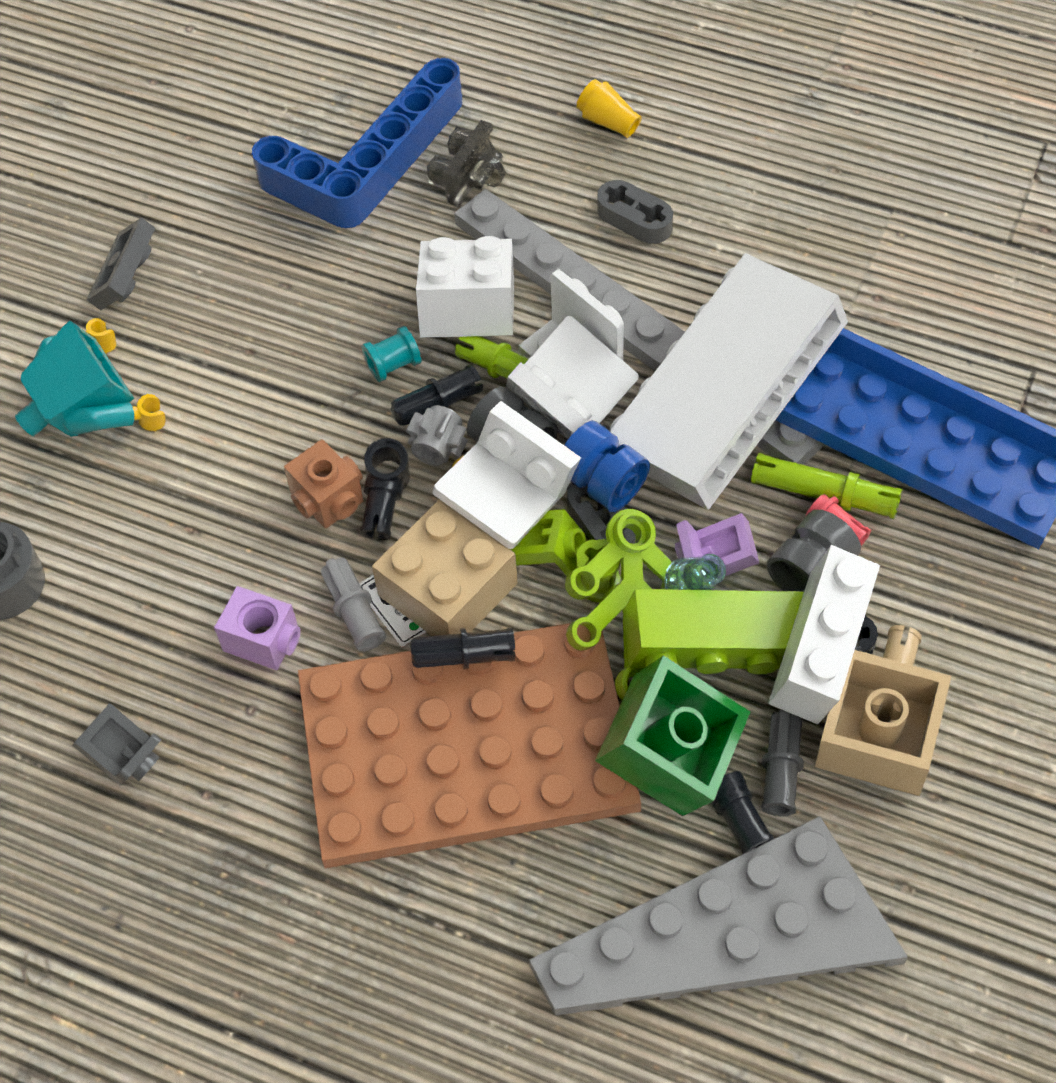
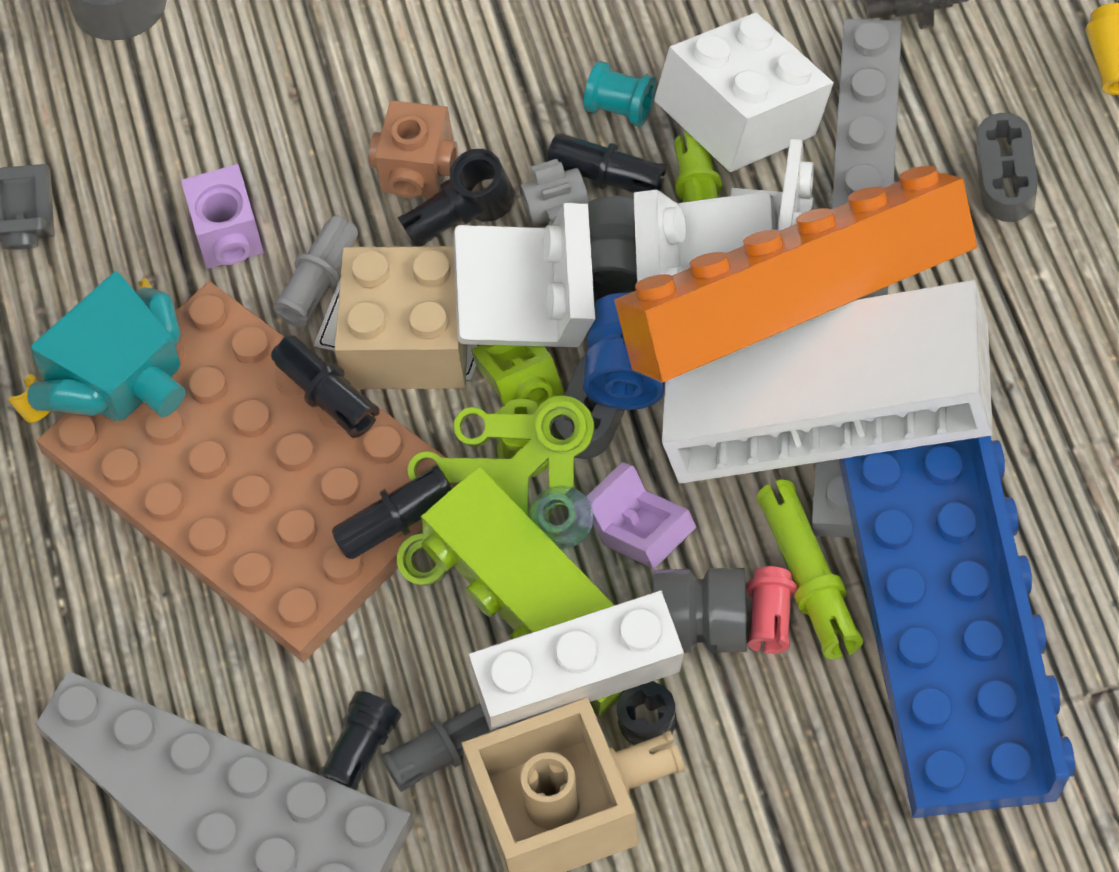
camera: 55 degrees right, 0 degrees up
(315, 765) = (107, 356): none -> teal torso
(603, 669) = (391, 513): none -> black axle
(652, 339) = (795, 273): none -> orange brick
(673, 736) = (373, 618): green brick -> none

